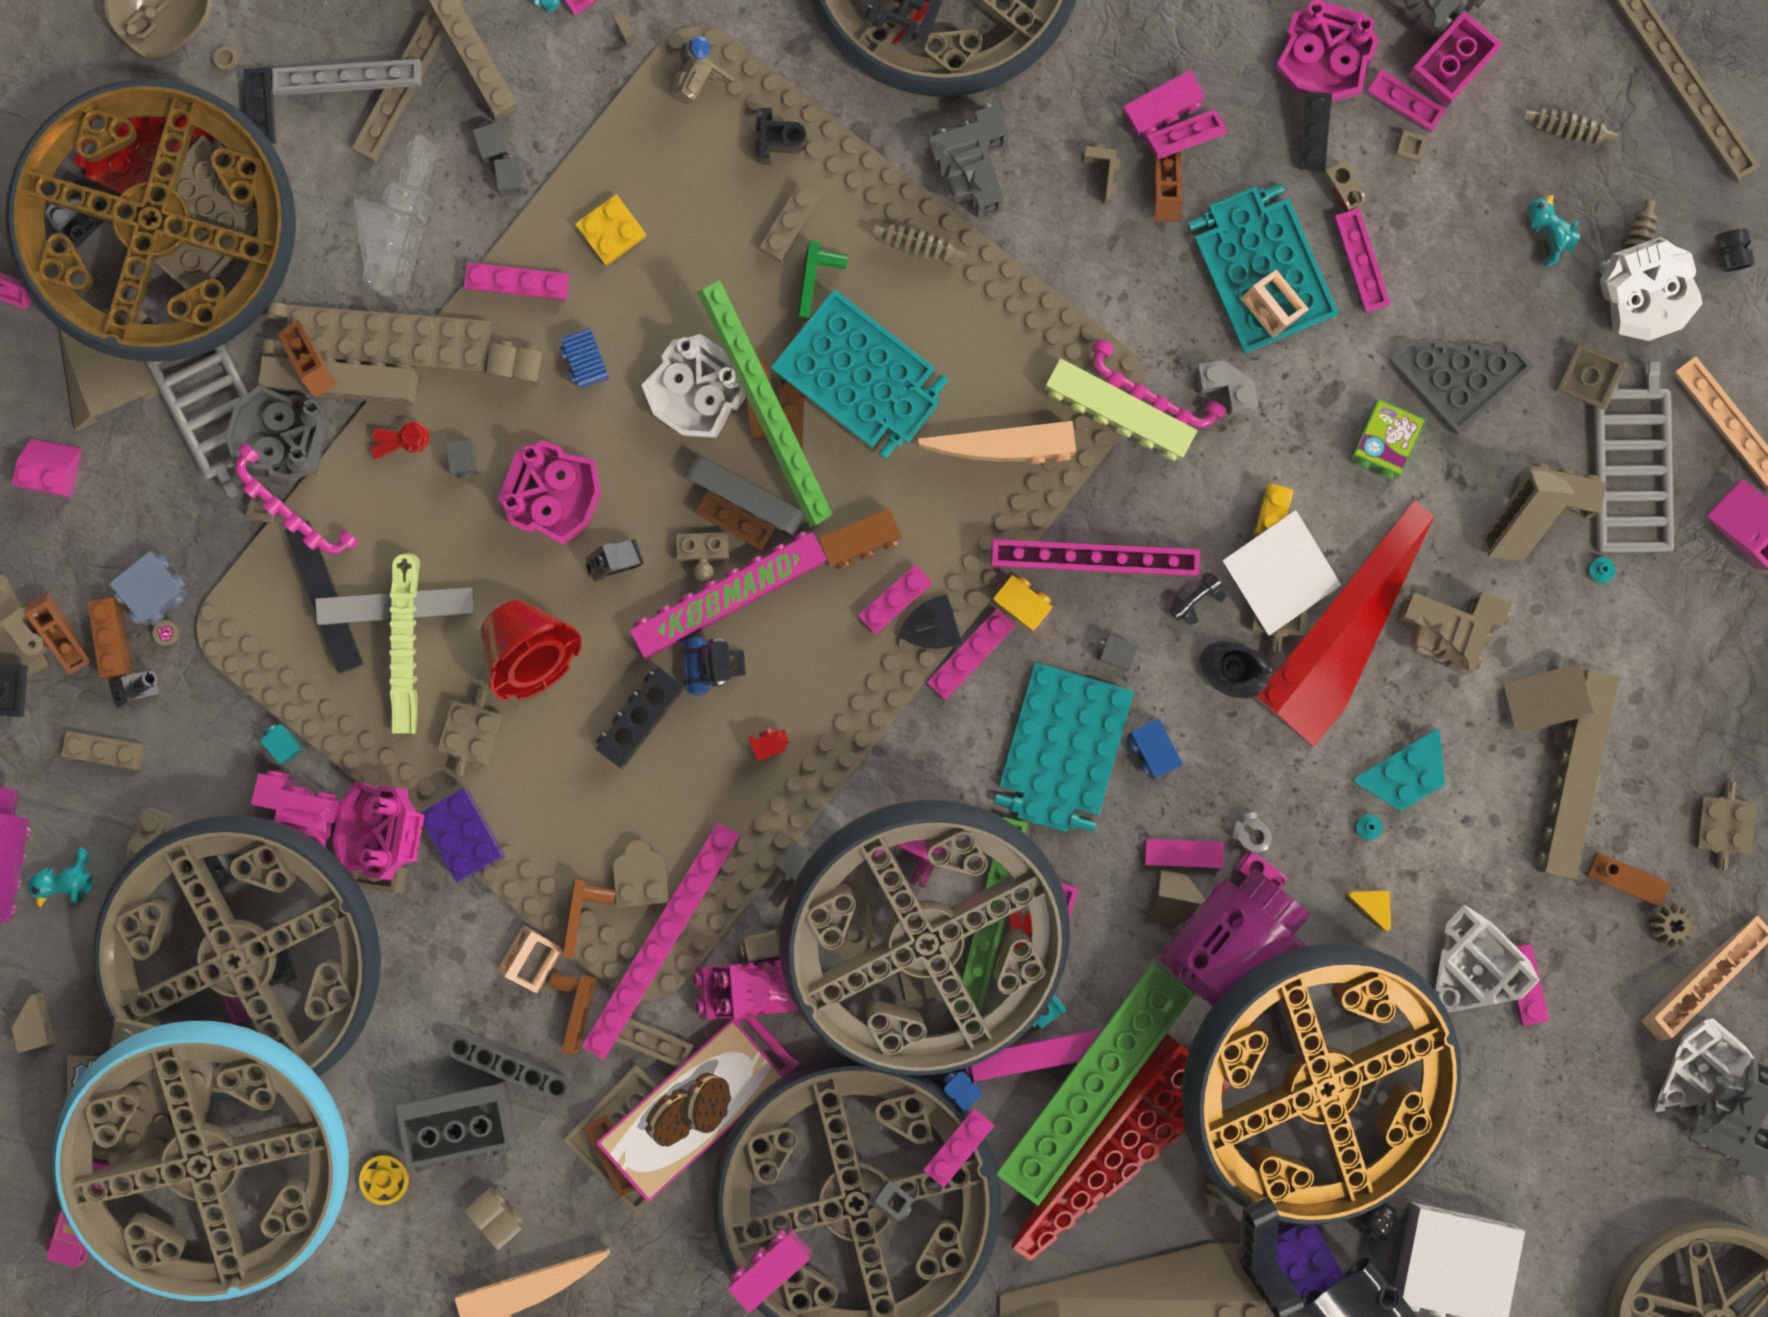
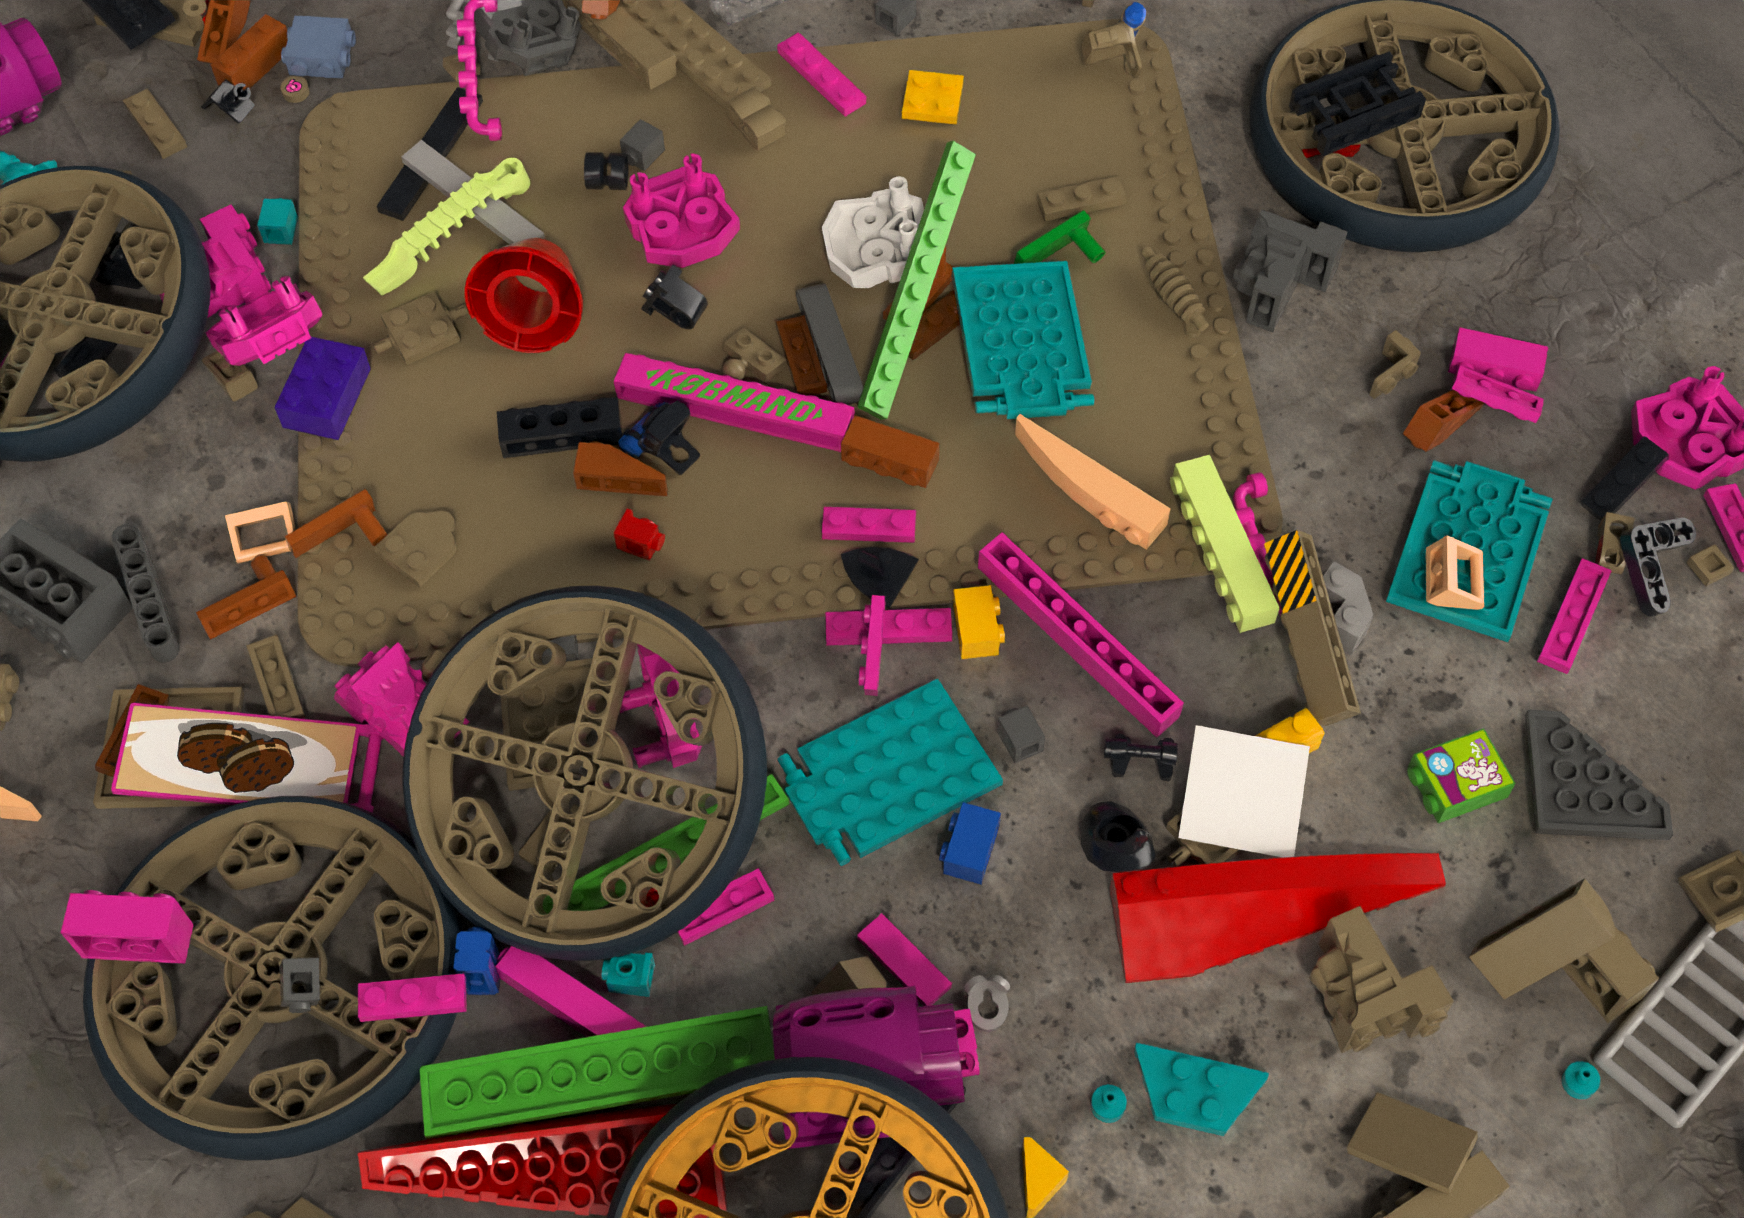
camera: 40 degrees right, 25 degrees down
(411, 437) = (619, 104): red piece -> none
(462, 512) = (596, 171): none -> black wheel
(584, 358) = (813, 156): blue brick -> none
(660, 941) = (375, 606): dark pink plate -> none
(703, 716) = (611, 470): none -> dark orange slope
(775, 135) = (1135, 133): black pin -> none
(981, 681) = (872, 645): none -> dark pink plate
(1226, 425) = (1311, 628): none -> dark tan brick
(1365, 179) = (1648, 547): none -> black beam

